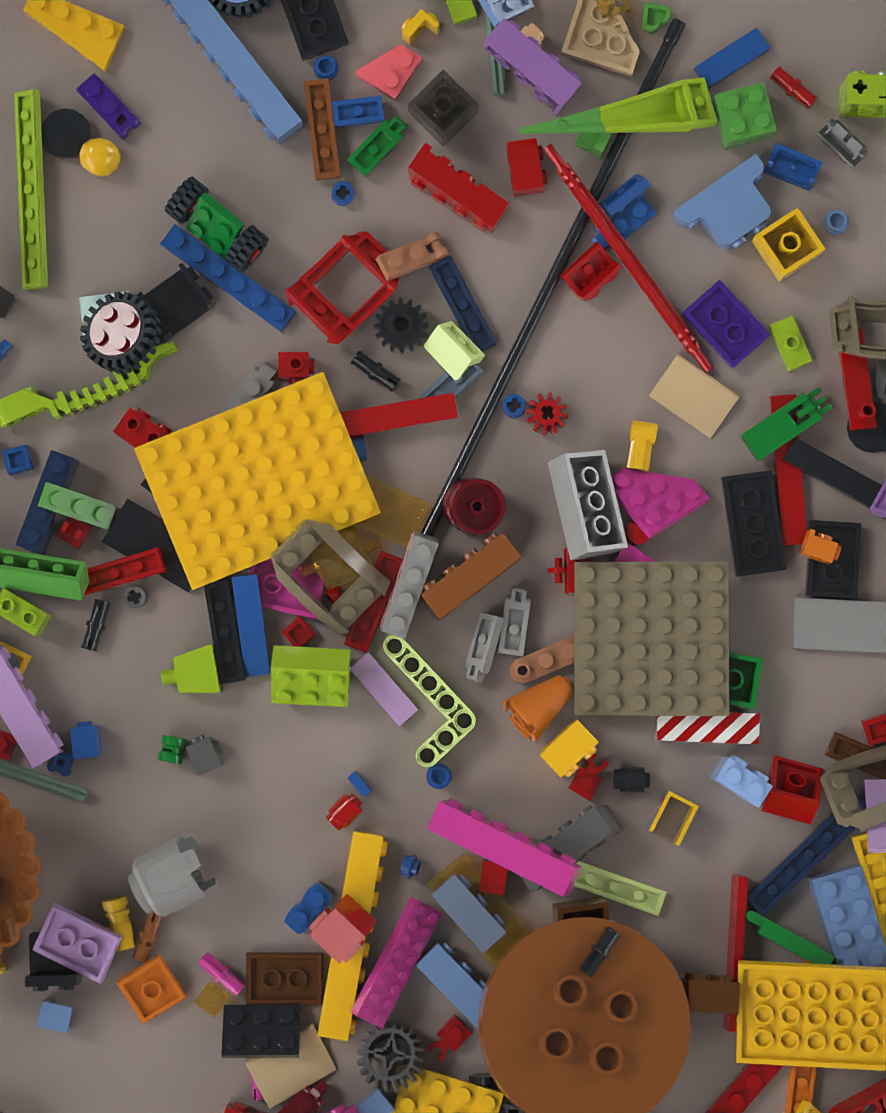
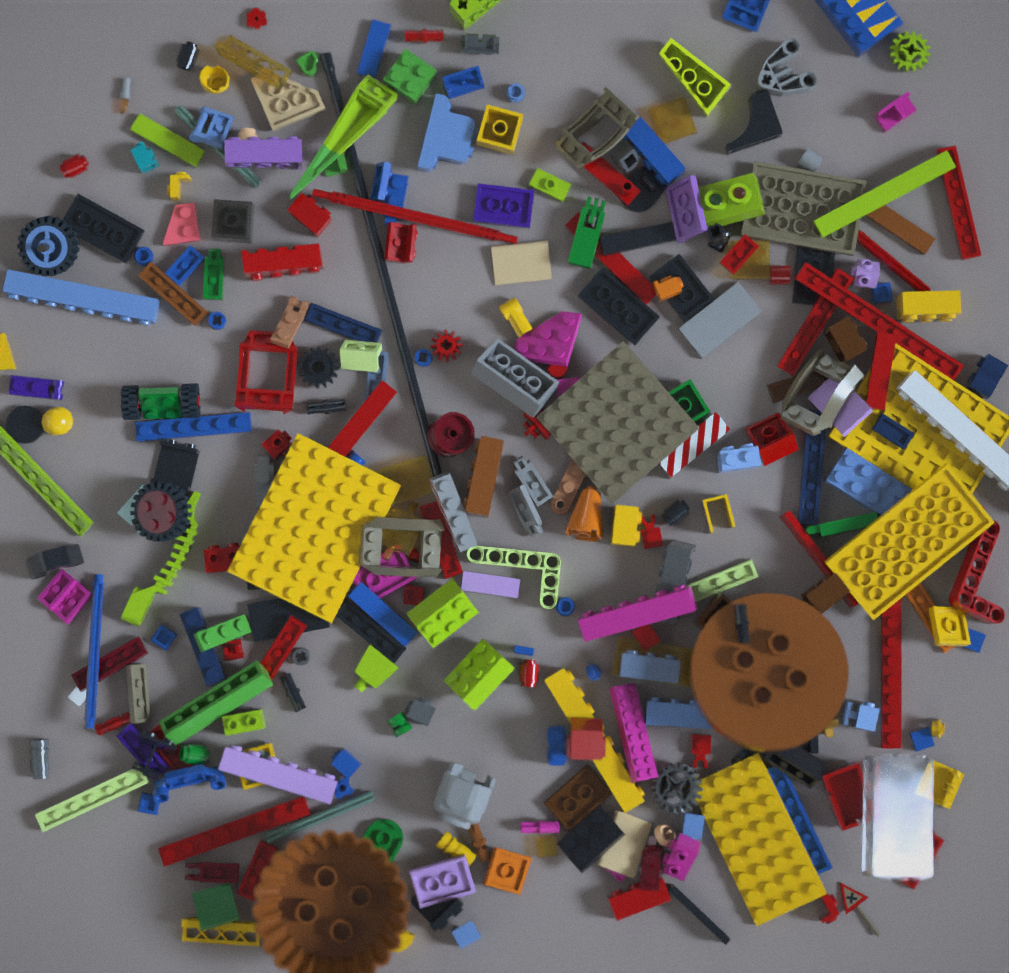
camera: 45 degrees left, 0 degrees up
(58, 848) = (385, 835): none -> green tile
(293, 769) = (478, 674): none -> lime piece
(338, 1092) = (664, 834): none -> light nougat hat

